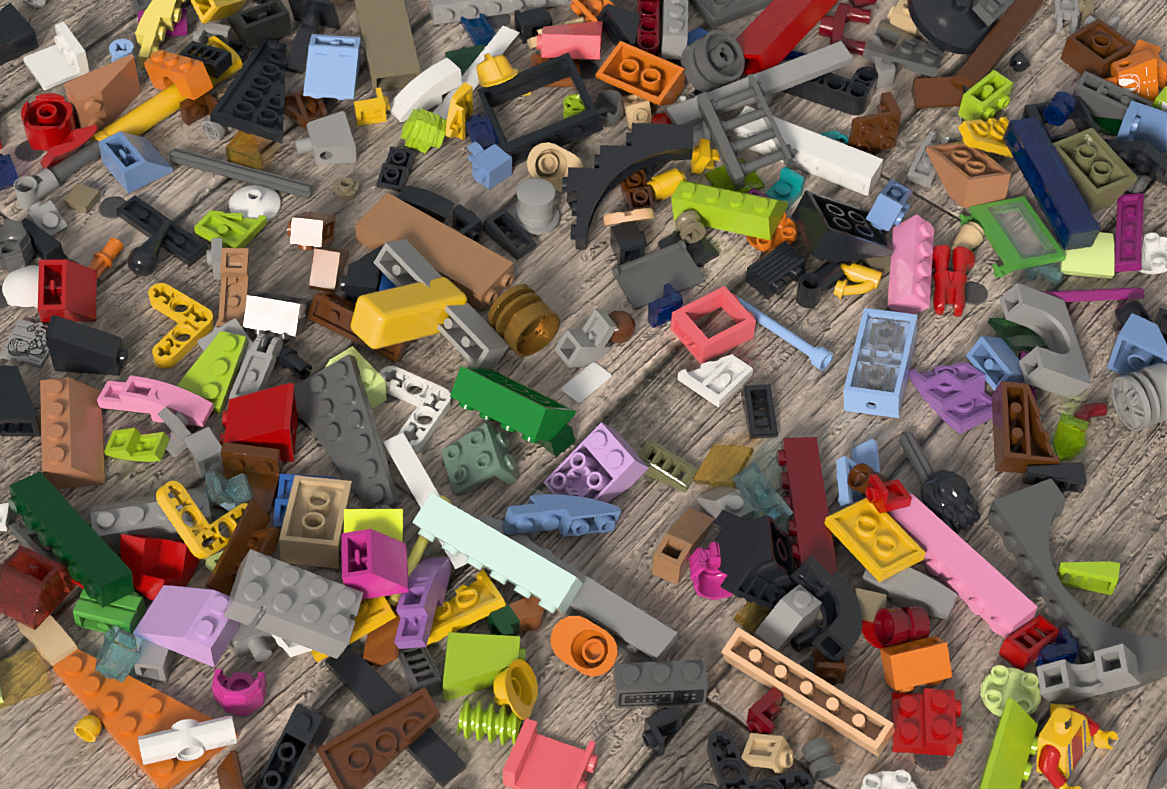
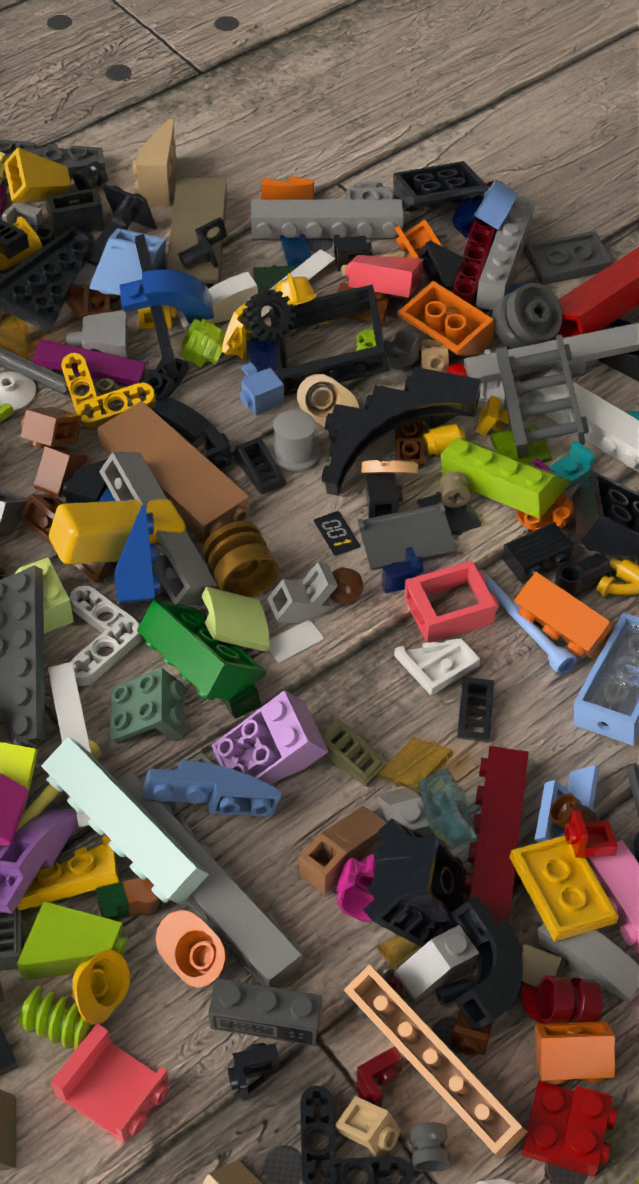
camera: 15 degrees right, 0 degrees up
(323, 165) = (100, 365): none -> magenta tile
(338, 199) = (92, 401): none -> yellow beam
(375, 103) = (158, 312): none -> black tile
(384, 85) = (168, 289): none -> blue arch
(400, 41) = (203, 248): none -> black bracket
(437, 343) = (134, 572): none -> blue slope
(495, 93) = (282, 311): none -> black tyre
(535, 371) = (236, 619): none -> yellowish green slope
(595, 283) = (336, 533): none -> black sticker
(815, 320) = (563, 616): none -> orange slope

